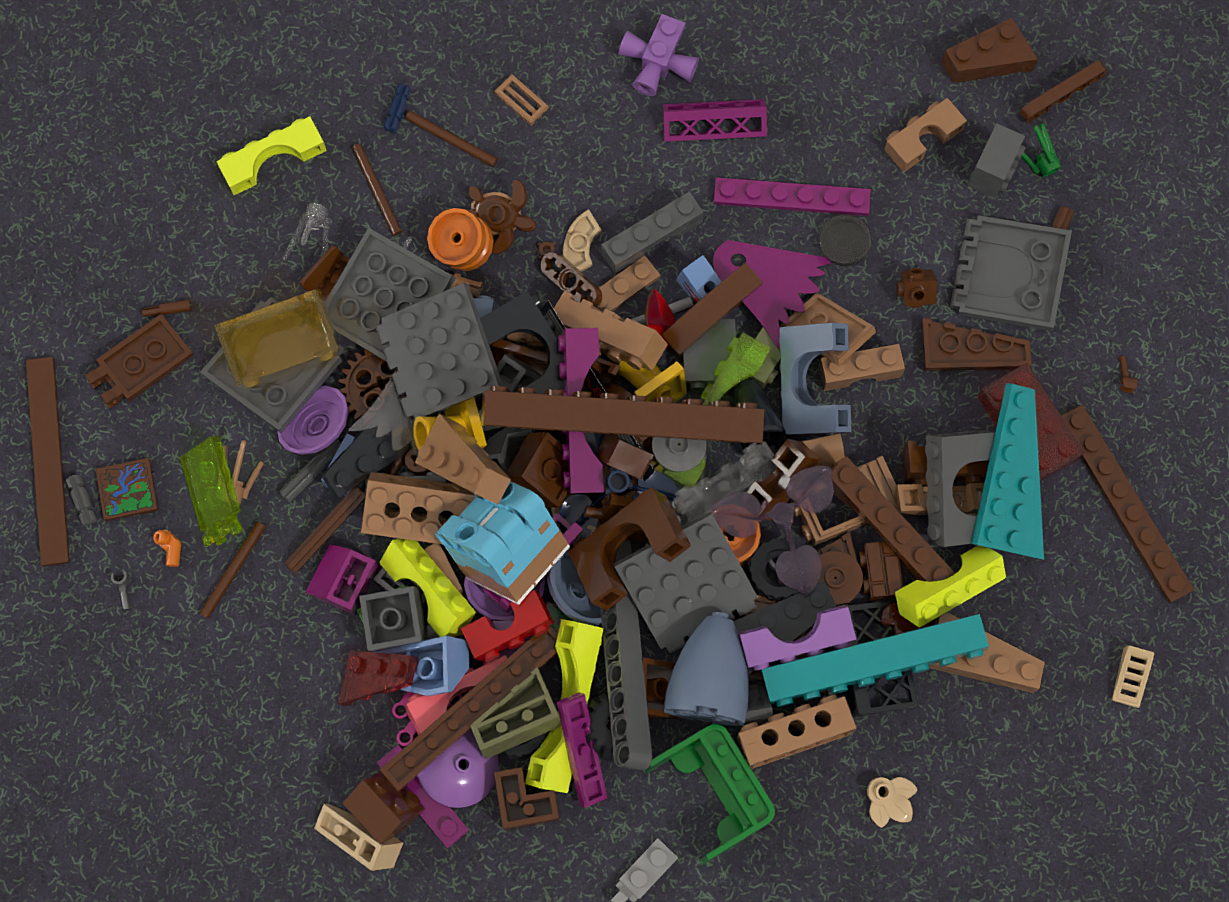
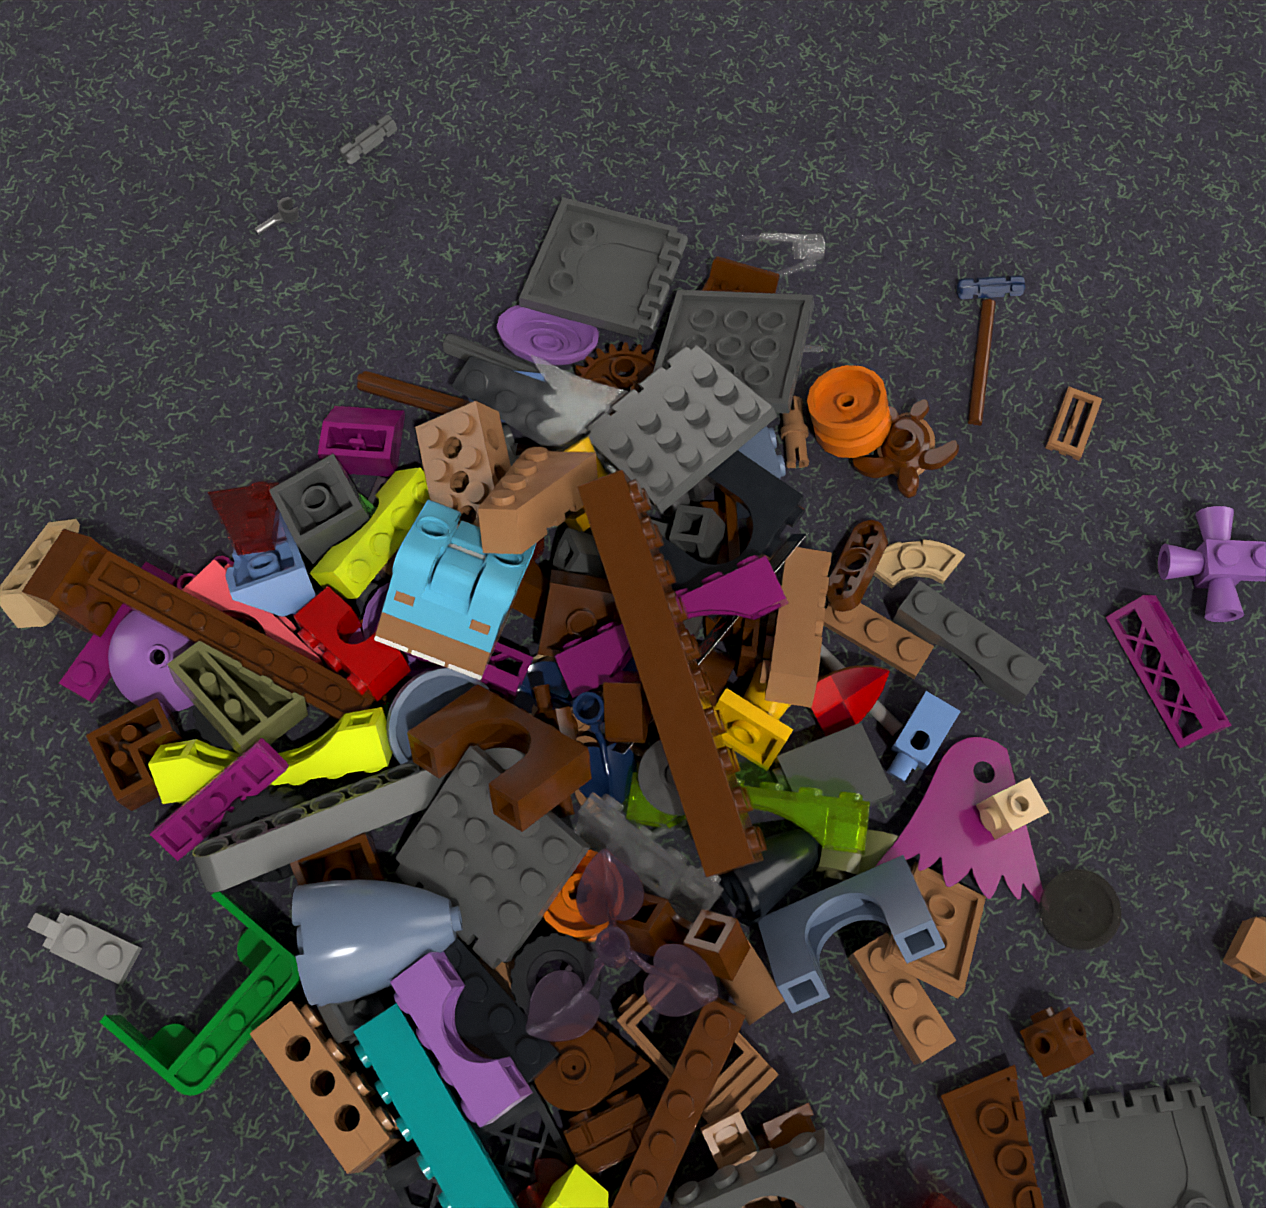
camera: 70 degrees right, 5 degrees down
(47, 462) = (401, 92): reddish brown tile -> none
(127, 489) = (397, 179): tile -> none
(139, 361) = (552, 135): reddish brown tile -> none
(167, 308) = (629, 140): reddish brown pin -> none
(171, 545) = (346, 246): orange arm -> none
(212, 491) = (419, 259): clear neon green tile -> none
(232, 570) = (338, 320): reddish brown bar -> none
(238, 485) = (434, 283): medium nougat plant -> none
(242, 166) = (833, 149): neon yellow arch -> none
(277, 337) = (630, 249): clear yellow windscreen -> none
(376, 189) = (875, 303): reddish brown bar -> none
(545, 248) = (889, 522): reddish brown piece -> none
(712, 309) = (891, 753): reddish brown slope -> none
(770, 252) = (1011, 808): none -> tan brick
(792, 196) = (1110, 816): magenta plate -> none

